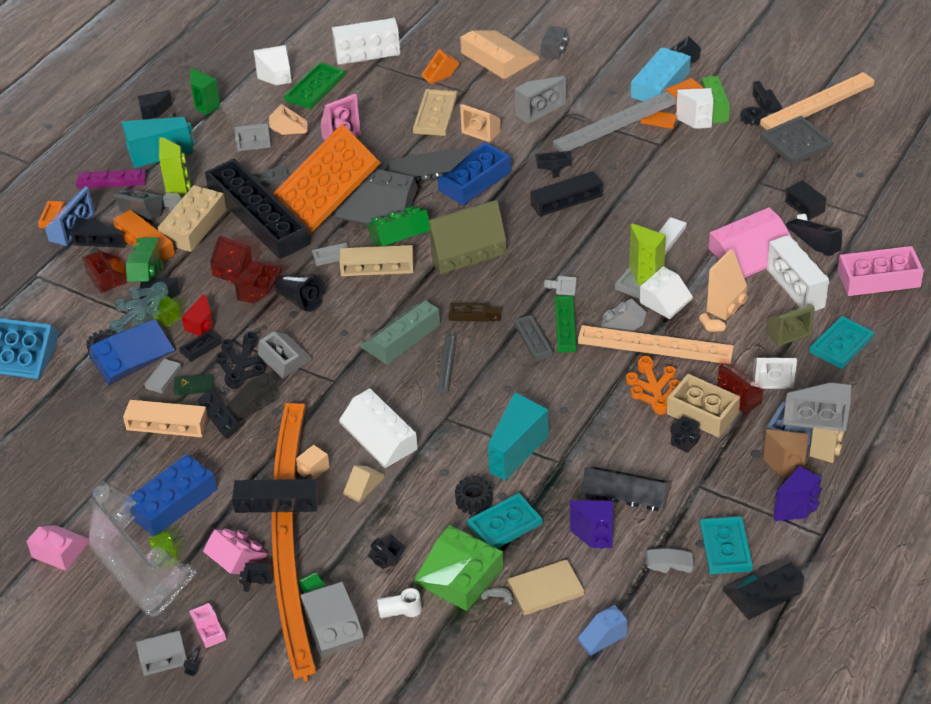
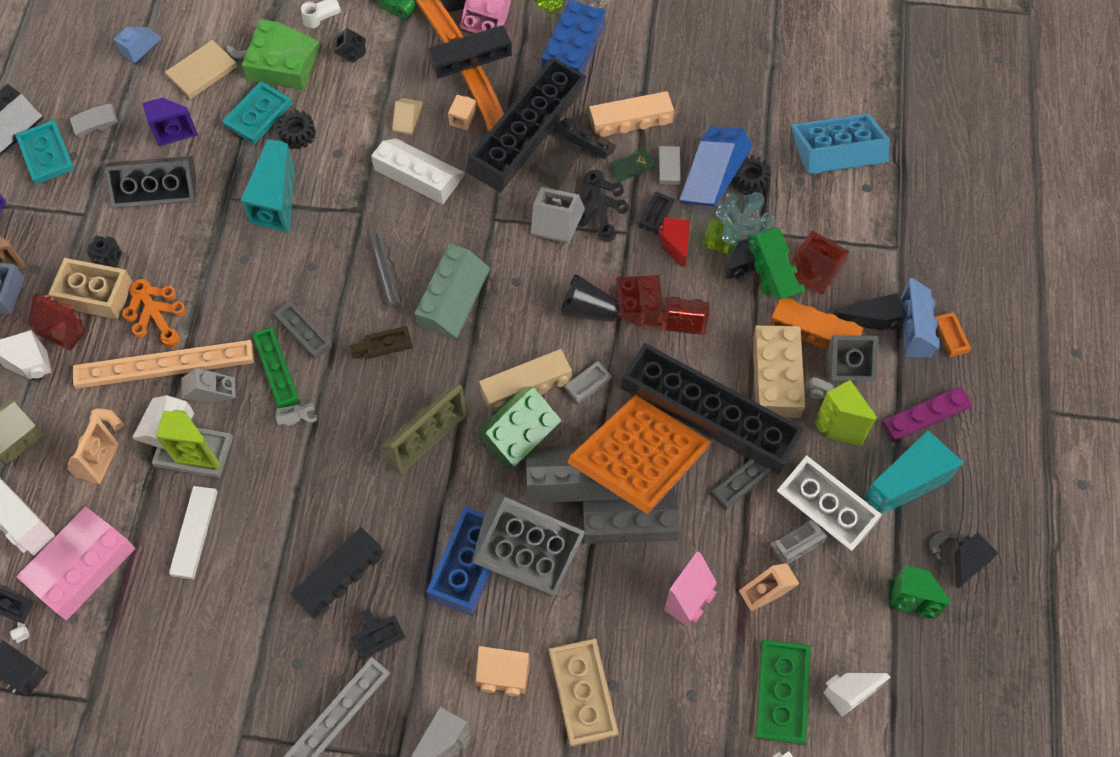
camera: 155 degrees right, 20 degrees up
(217, 141) = (829, 503): none -> white slope
(264, 414) = (525, 124): none -> black brick

